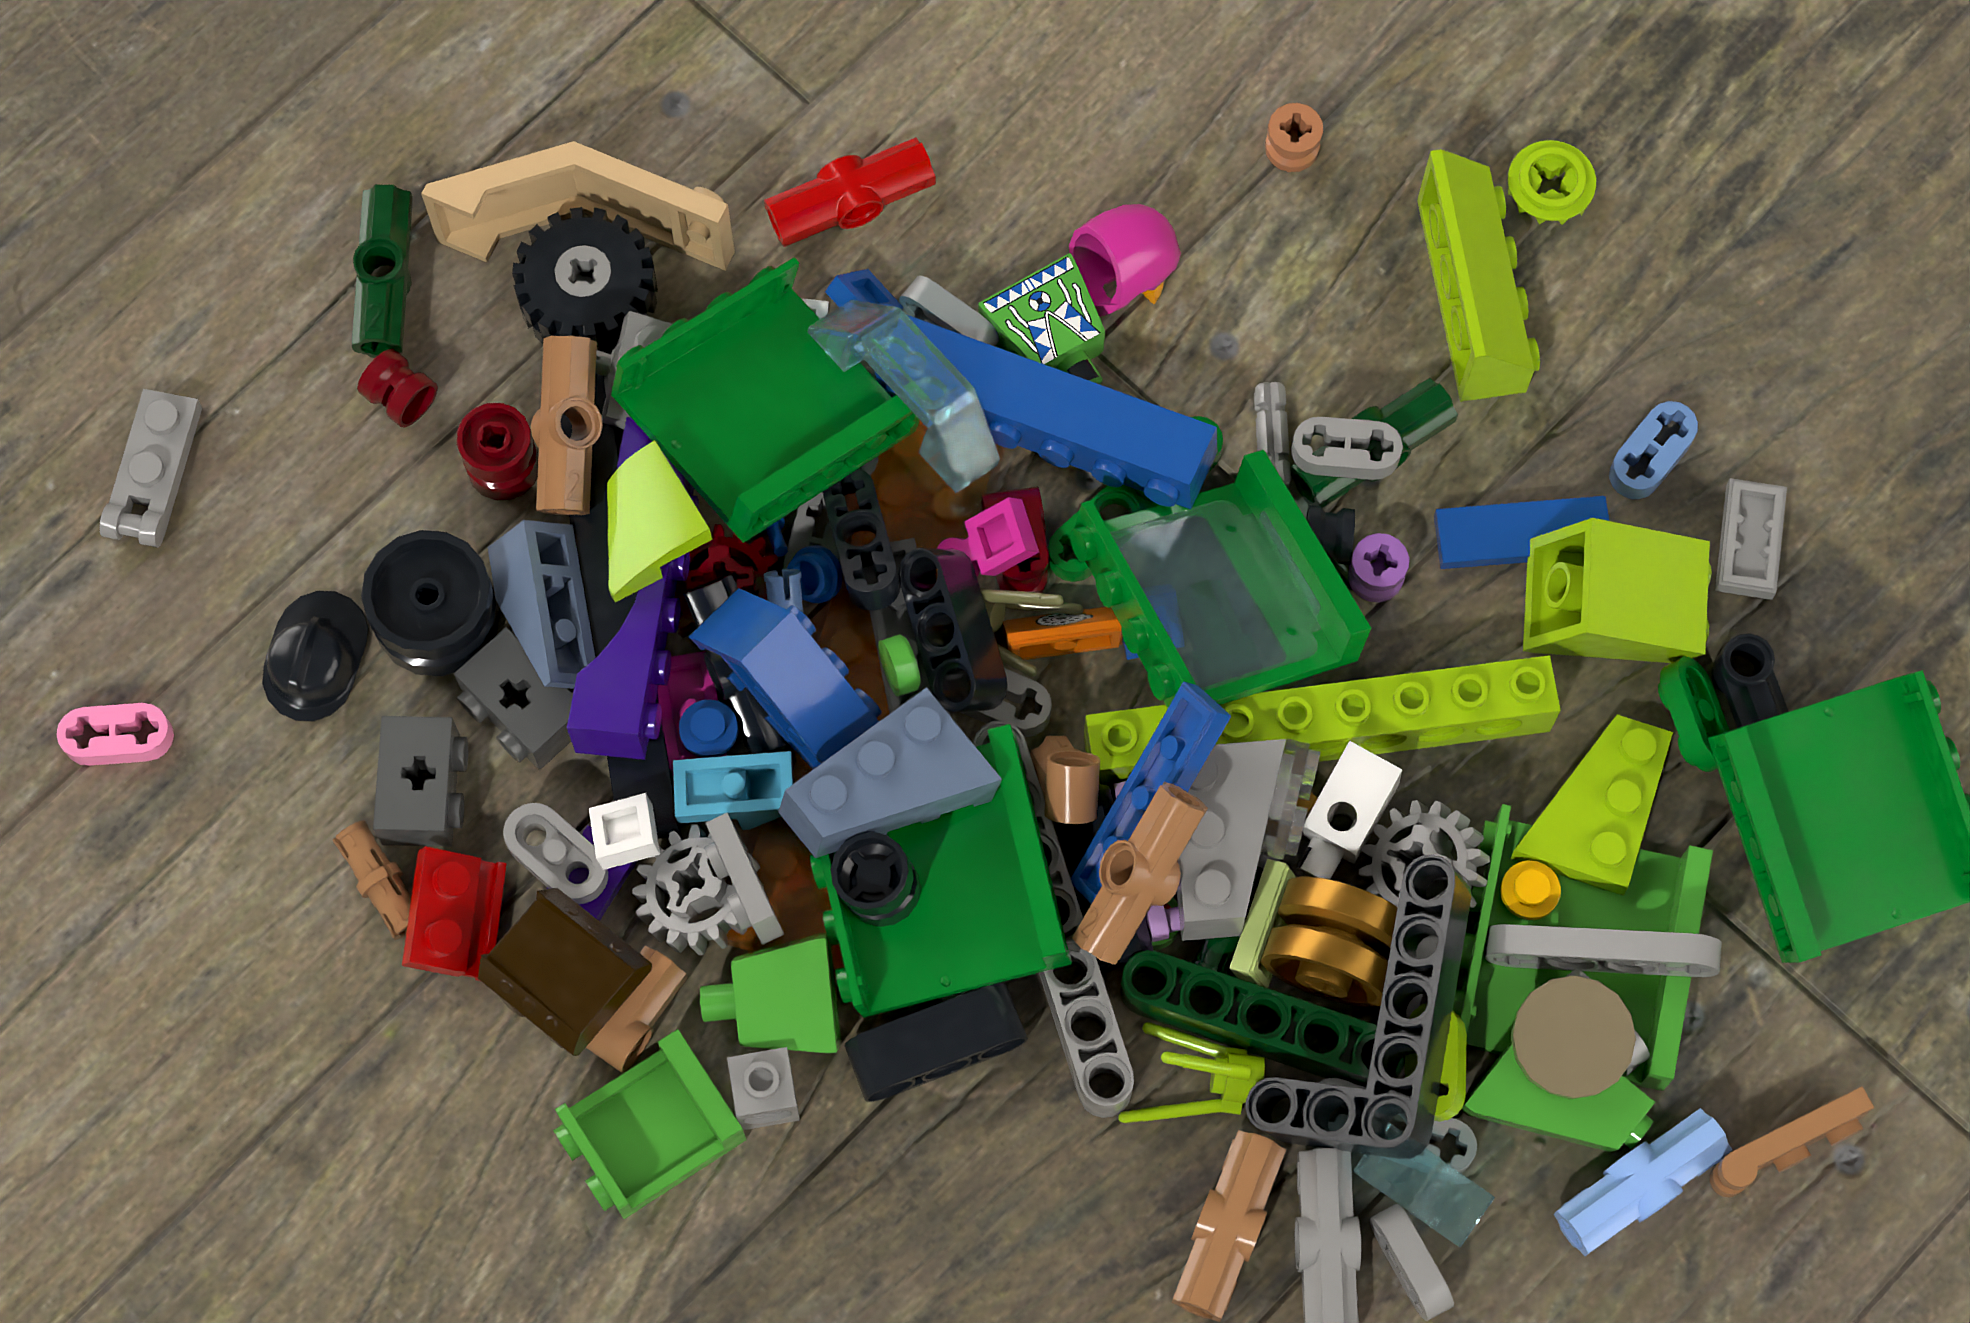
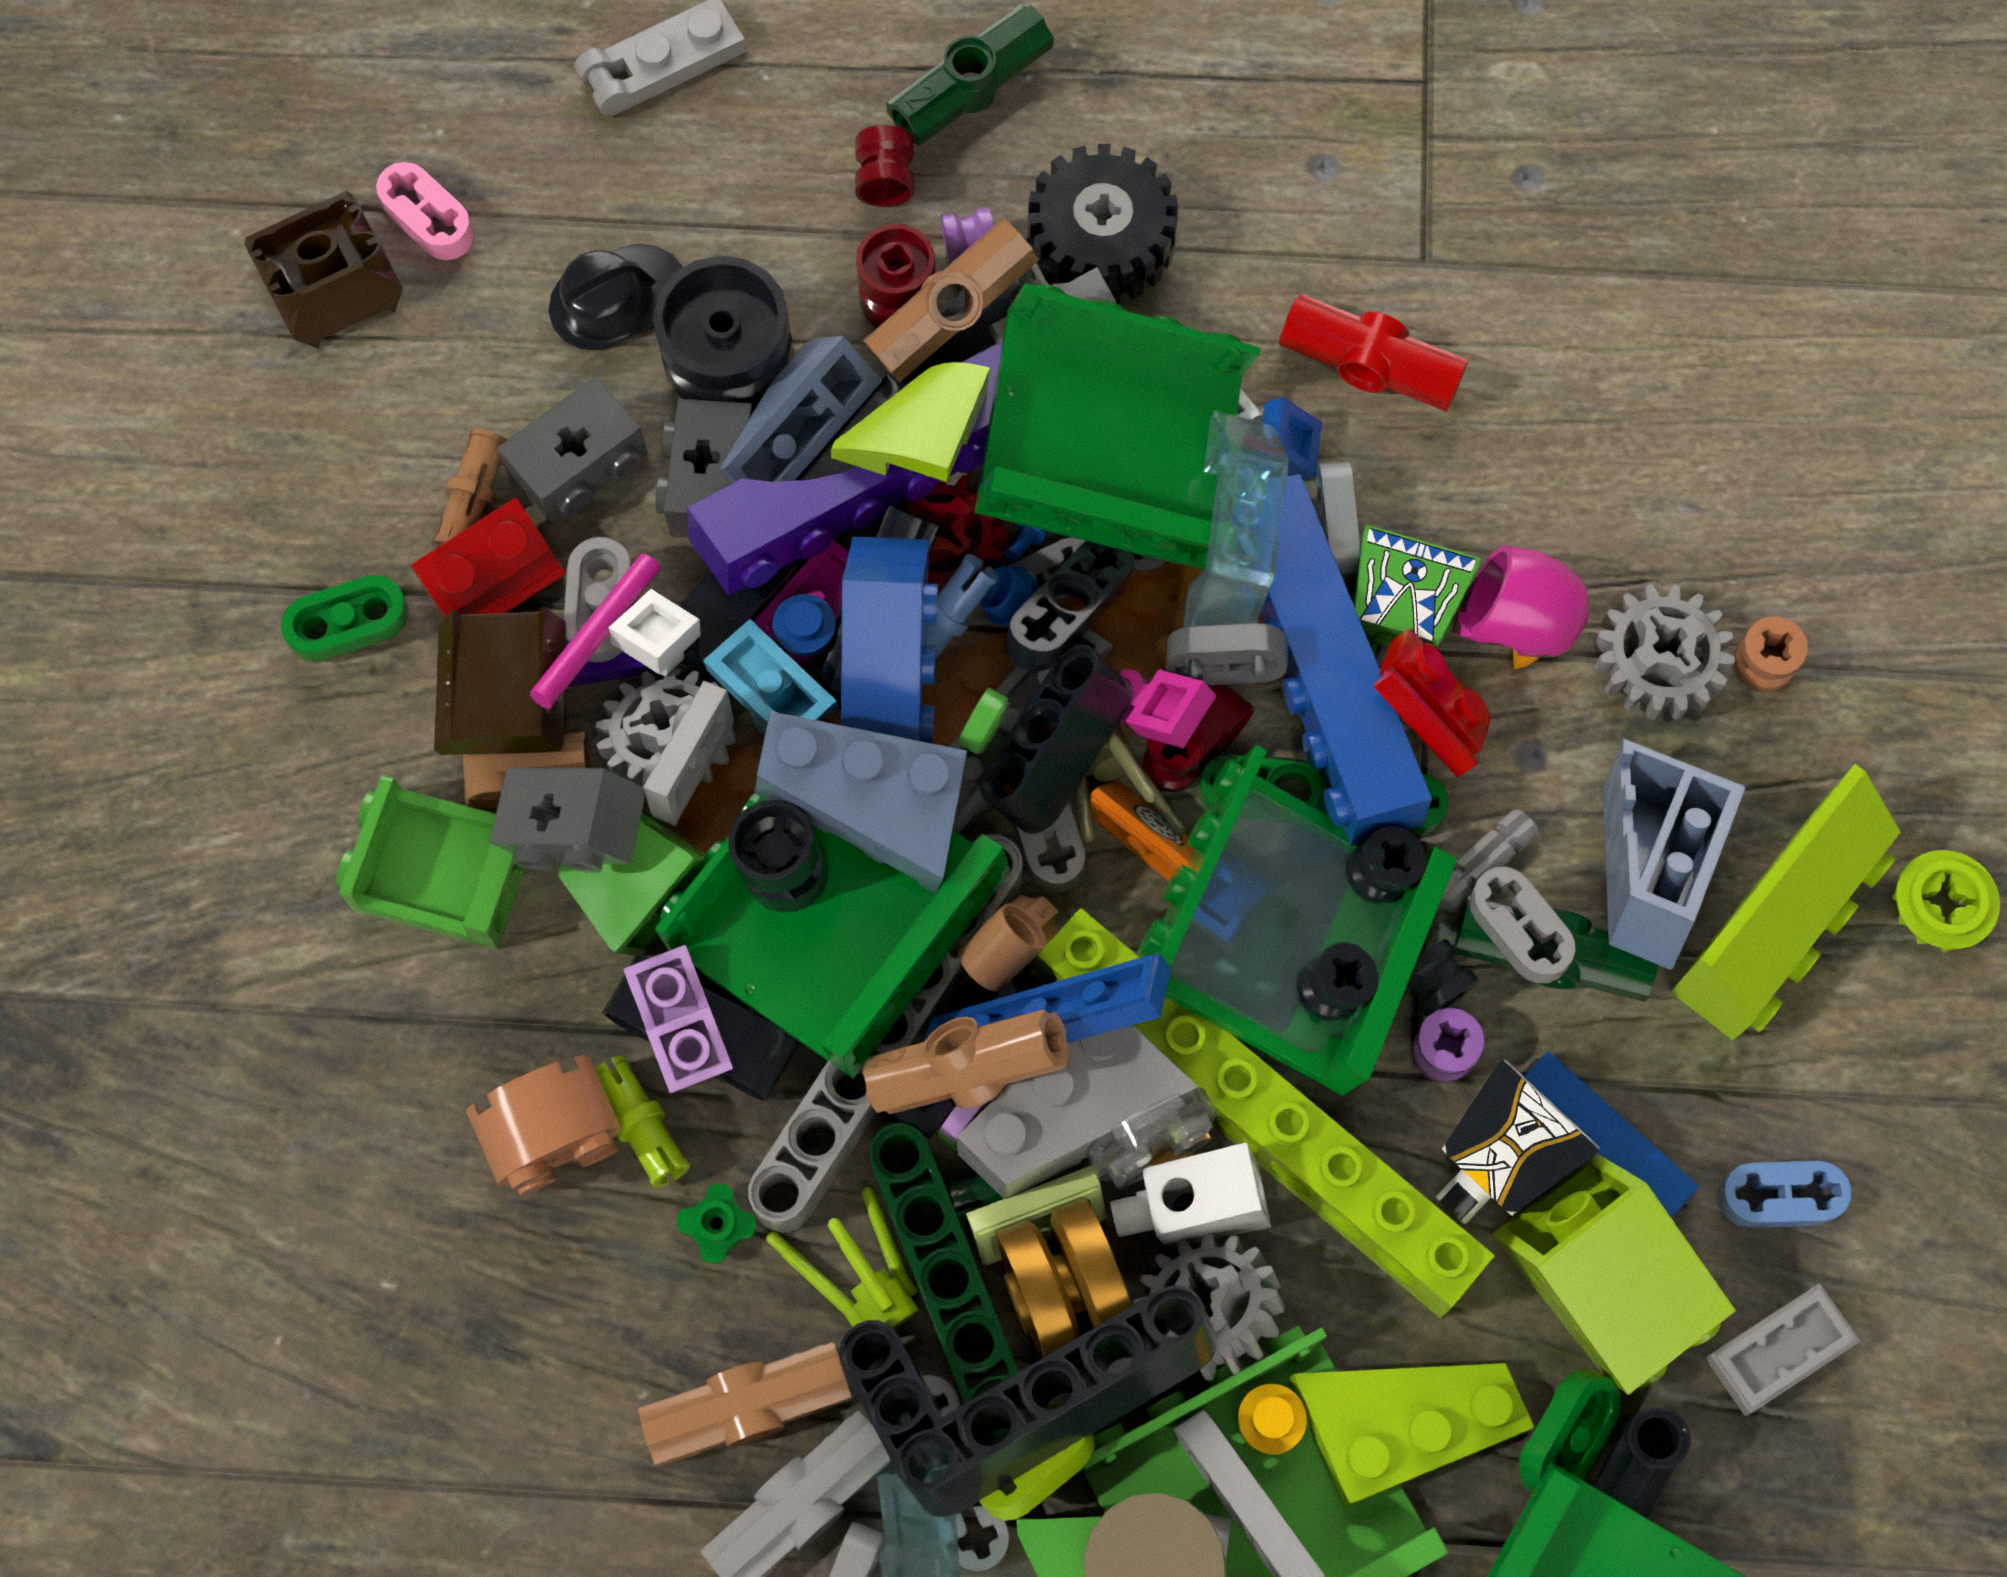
camera: 50 degrees right, 0 degrees up
(93, 841) = (324, 269): none -> dark brown slope
(397, 1048) = (345, 614): none -> green plate
(511, 378) = (962, 232): none -> medium lavender wheel
(516, 194) = (1117, 106): tan windscreen -> none
(588, 871) = (594, 631): none -> dark pink bar
(730, 971) = (568, 818): none -> dark grey brick
(763, 1088) = (541, 923): light grey brick -> none
(920, 1199) = (544, 1124): none -> nougat brick
(926, 1046) = (678, 1019): none -> lavender slope
(965, 1138) = (642, 1123): none -> lime pin
(995, 468) = (1228, 653): none -> dark grey beam
(1072, 1157) = (716, 1243): none -> green plate
(1142, 369) = (1433, 701): none -> red plate
(1215, 507) = (1370, 870): none -> black wheel
(1240, 176) = (1673, 676): none -> light grey gear
(1270, 600) = (1322, 989): none -> black wheel
(1372, 318) = (1661, 848): none -> sand blue wedge
(1483, 585) = (1510, 1147): none -> black torso

